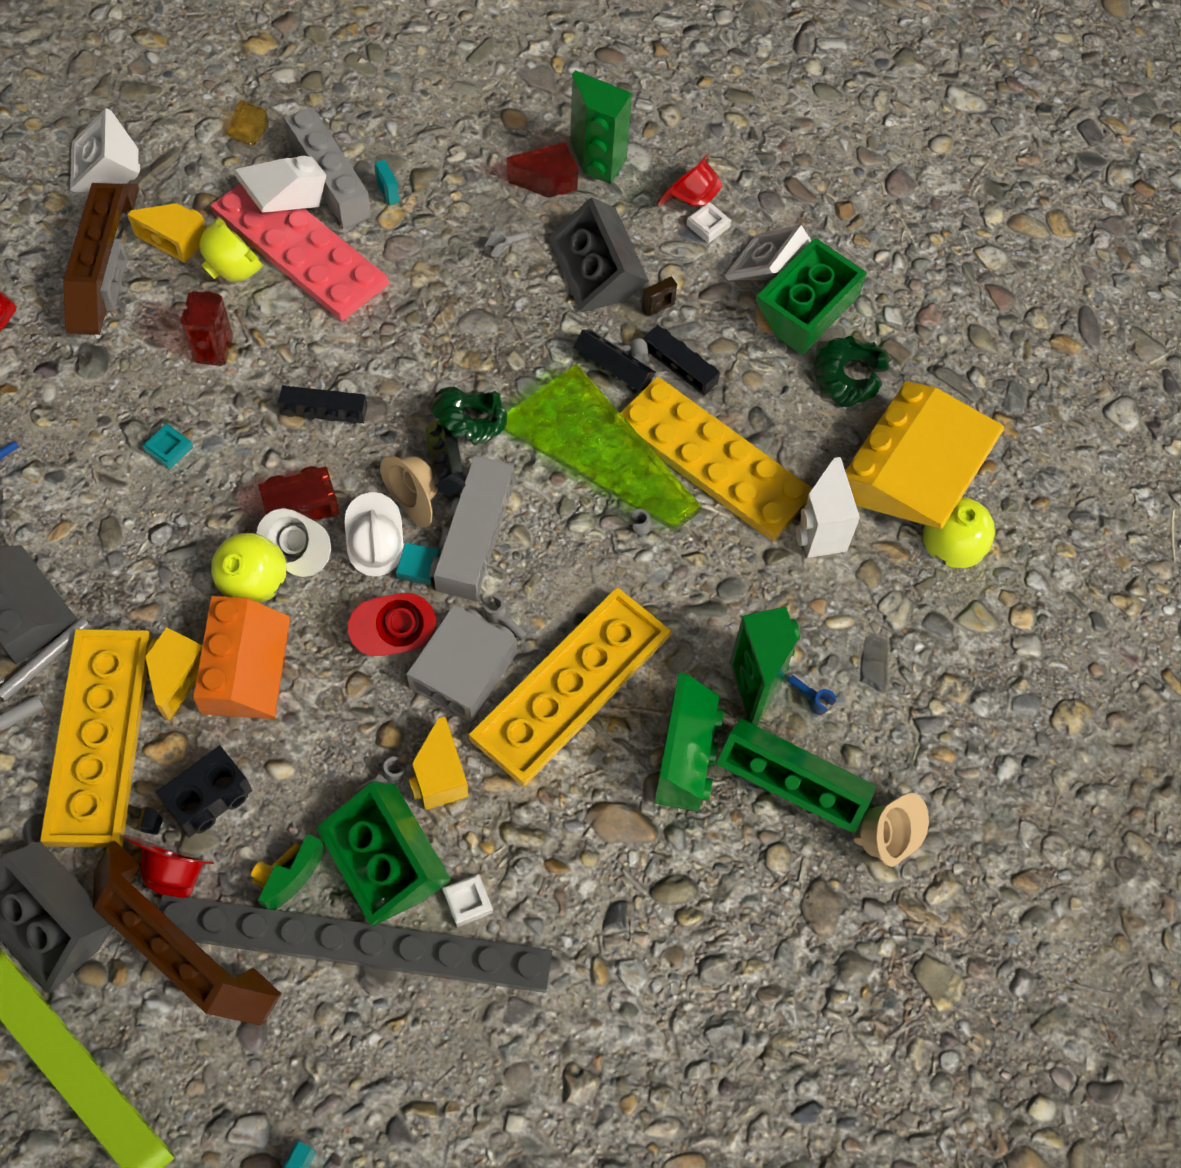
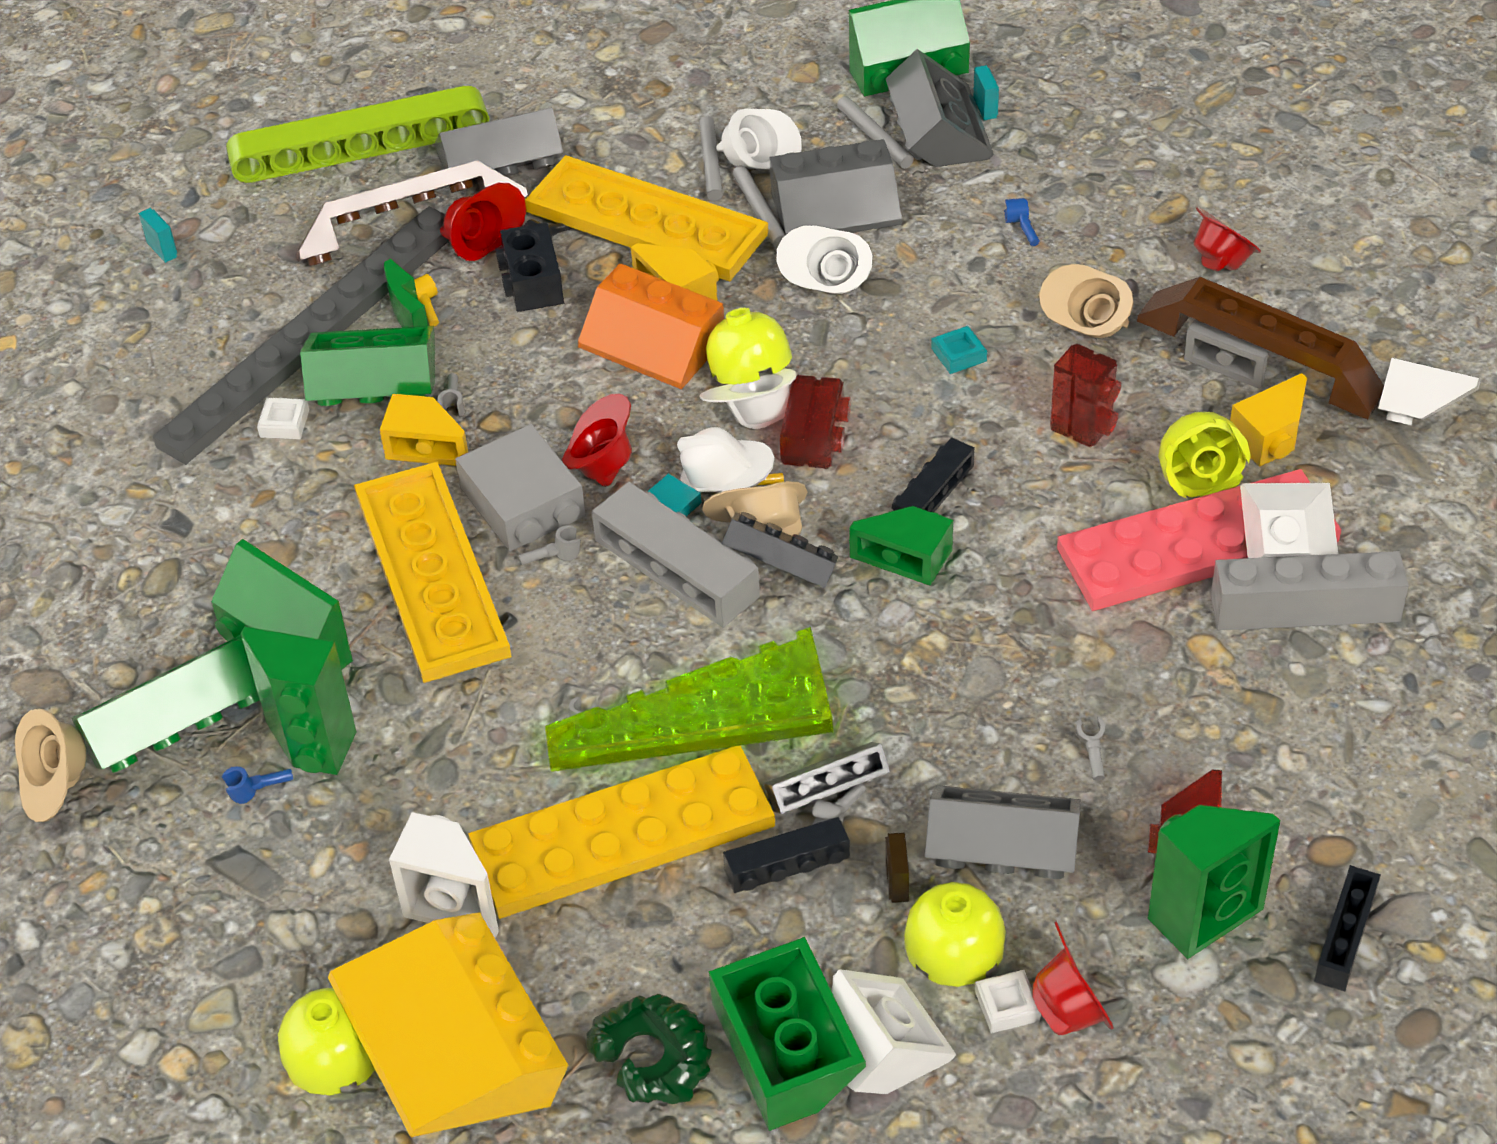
camera: 125 degrees right, 15 degrees down
(96, 363) = (1086, 300): none -> tan piece
(117, 555) = (824, 259): none -> white piece
(248, 123) = (1436, 547): clear yellow slope -> none
(386, 182) = (1254, 646): teal tile -> none
(391, 391) = (904, 542): none -> green slope
(449, 406) = (830, 563): dark green piece -> none
(558, 88) = (1347, 928): none -> black piece
(685, 255) = (955, 934): none -> neon yellow cylinder

